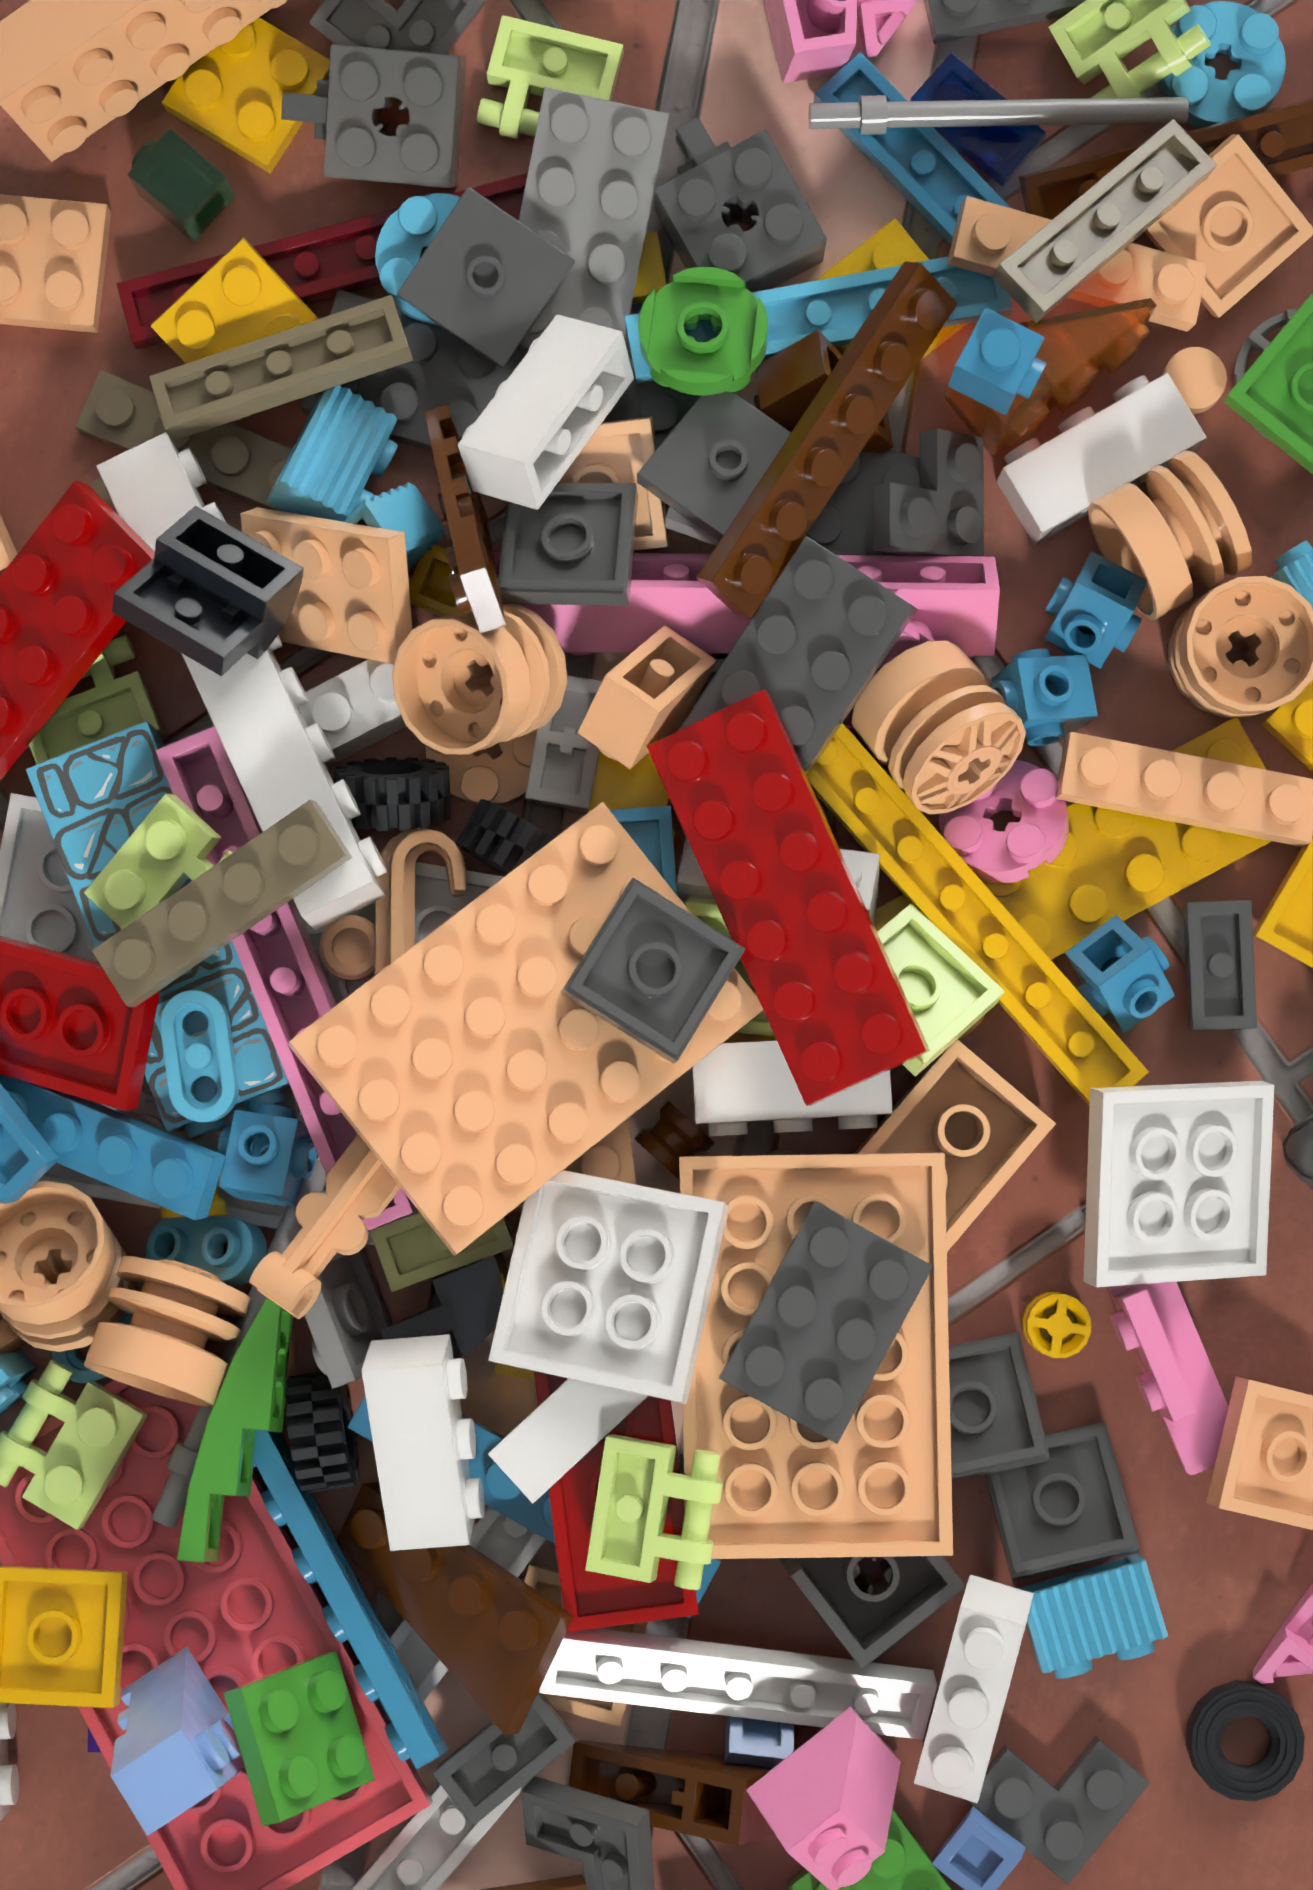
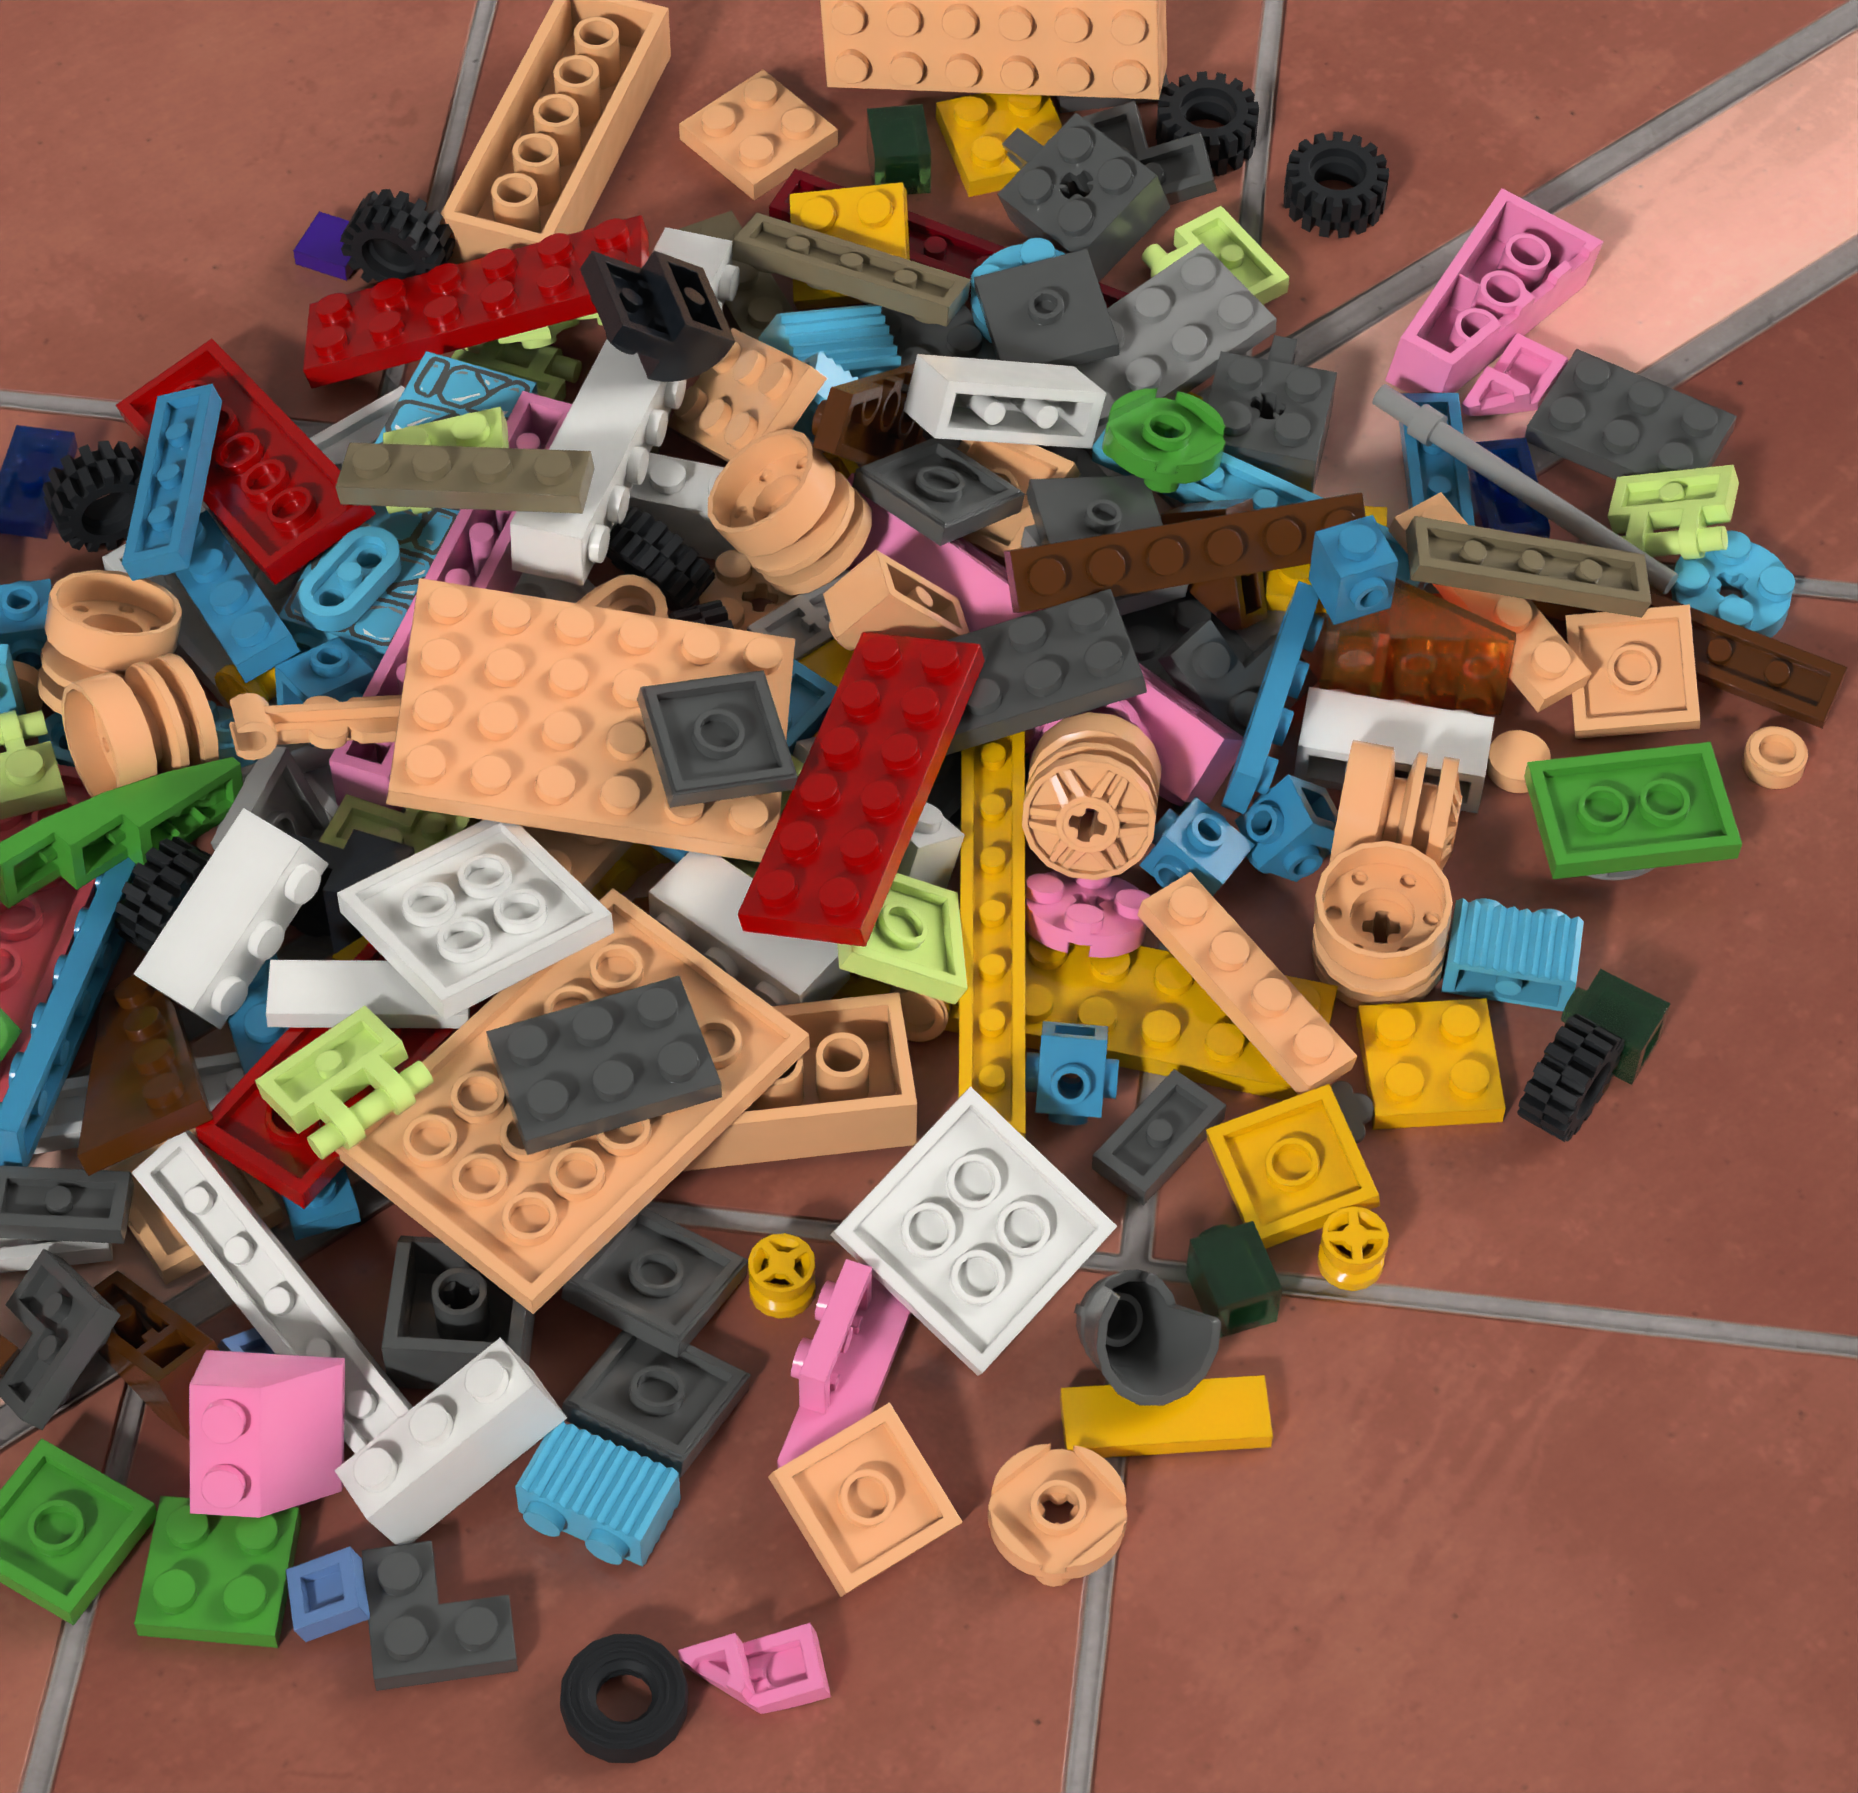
camera: 35 degrees right, 30 degrees down
(990, 494) = (1269, 718): none -> dark azure plate

